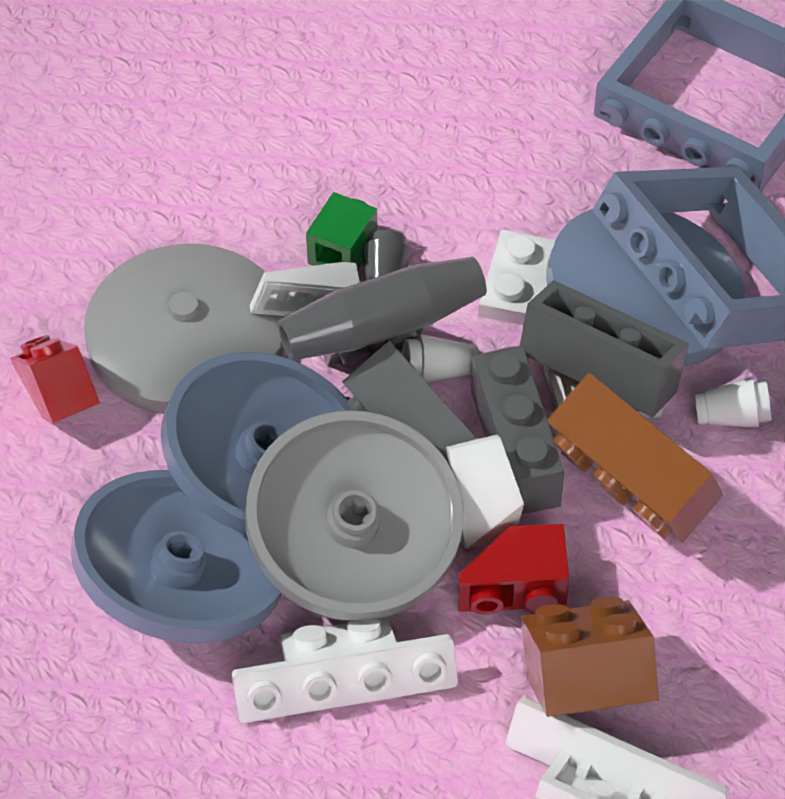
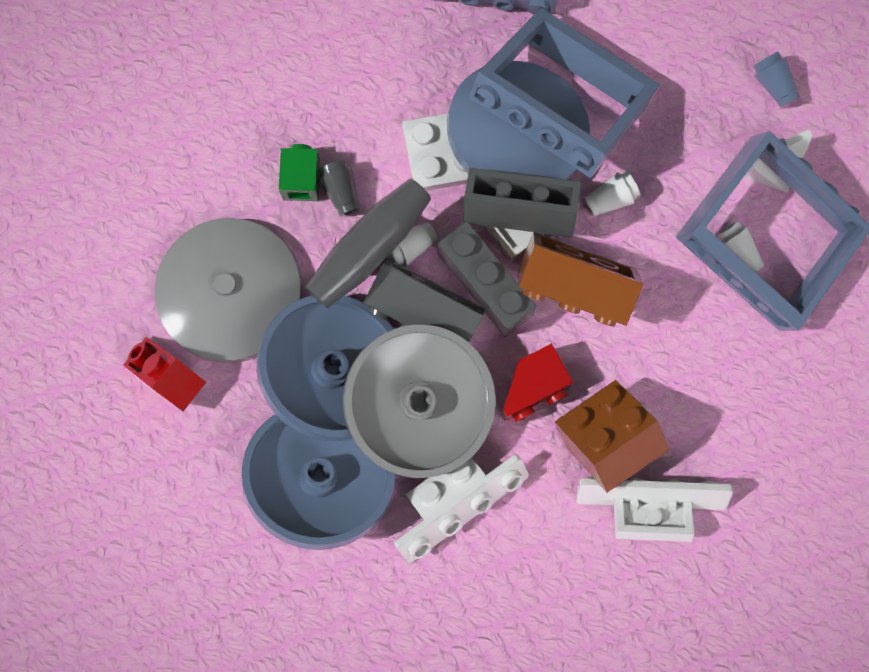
camera: 25 degrees left, 25 degrees up
(305, 284) = (307, 231): white slope -> none
(486, 488) = (491, 338): white slope -> none

